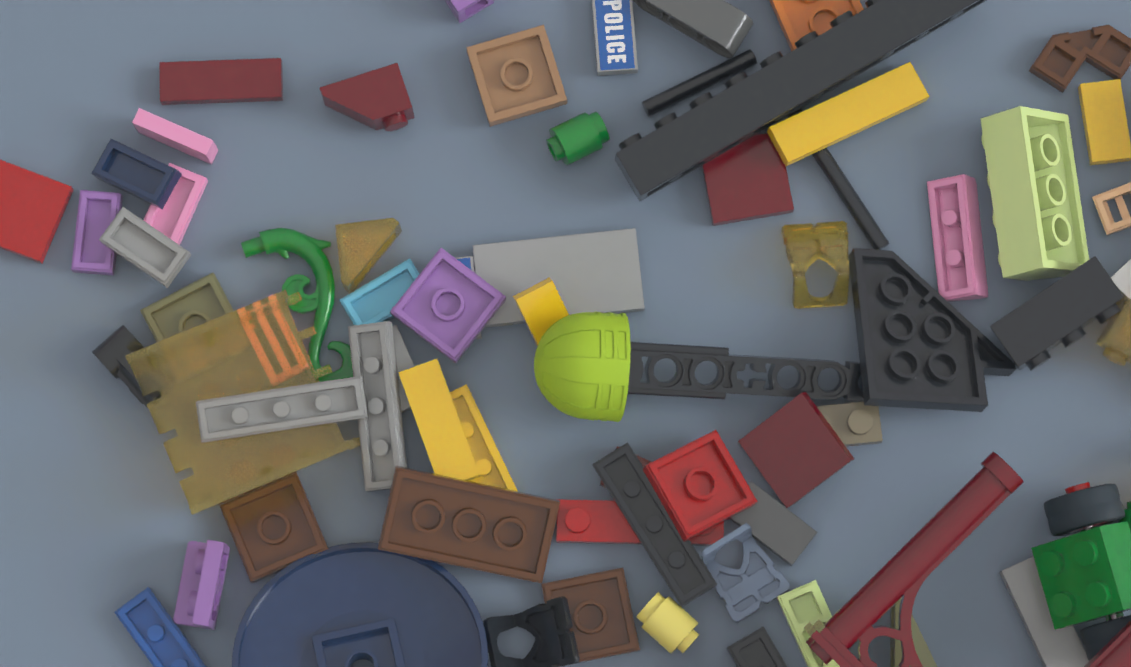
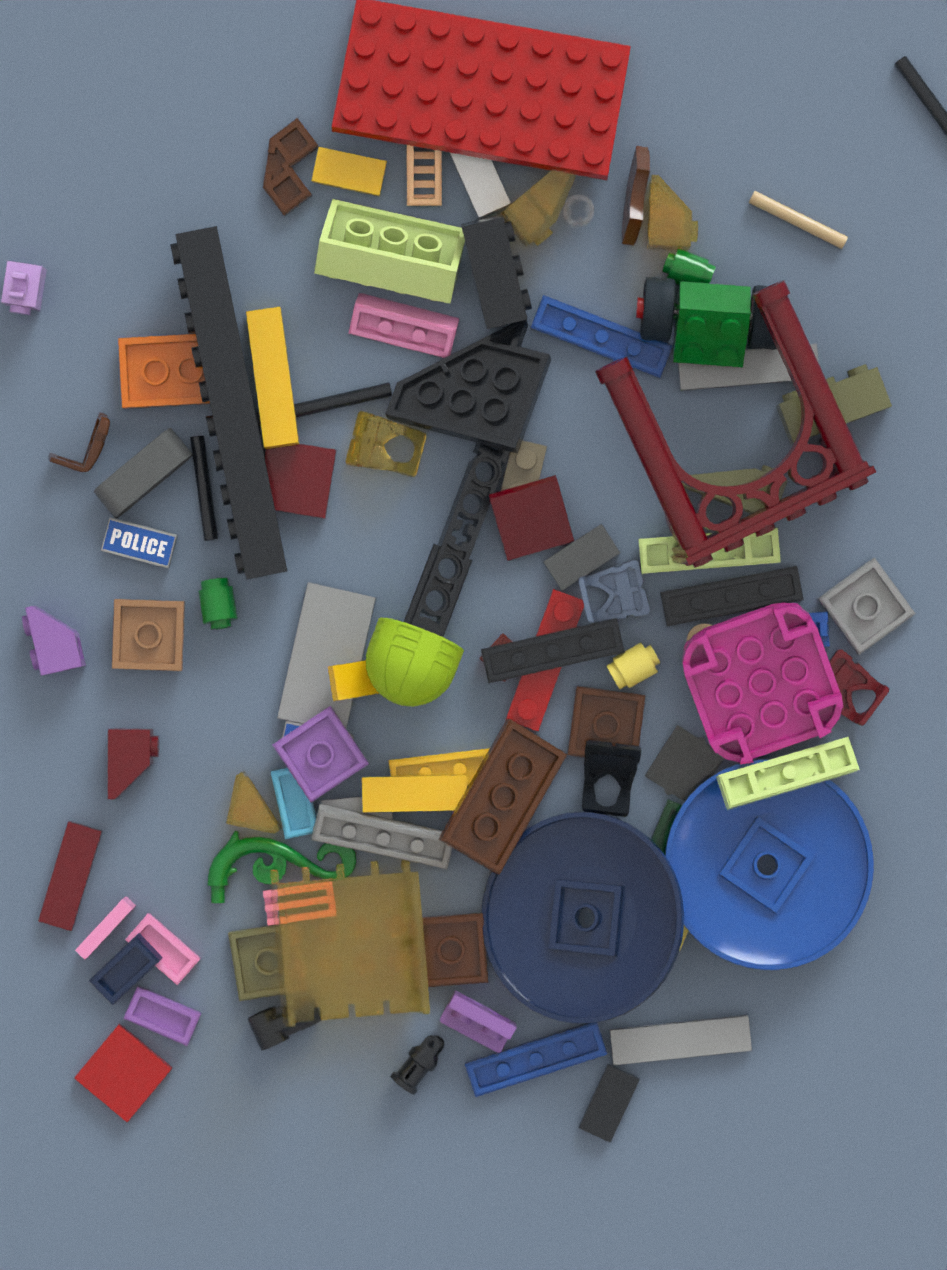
camera: 75 degrees left, 10 degrees up
(136, 535) = (422, 1059): none -> black piece
(145, 247) = (190, 981): light grey tile -> none
(281, 409) = (361, 914): light grey tile -> none
(699, 485) = (534, 604): red tile -> none
(1029, 457) = (600, 336): none -> blue tile

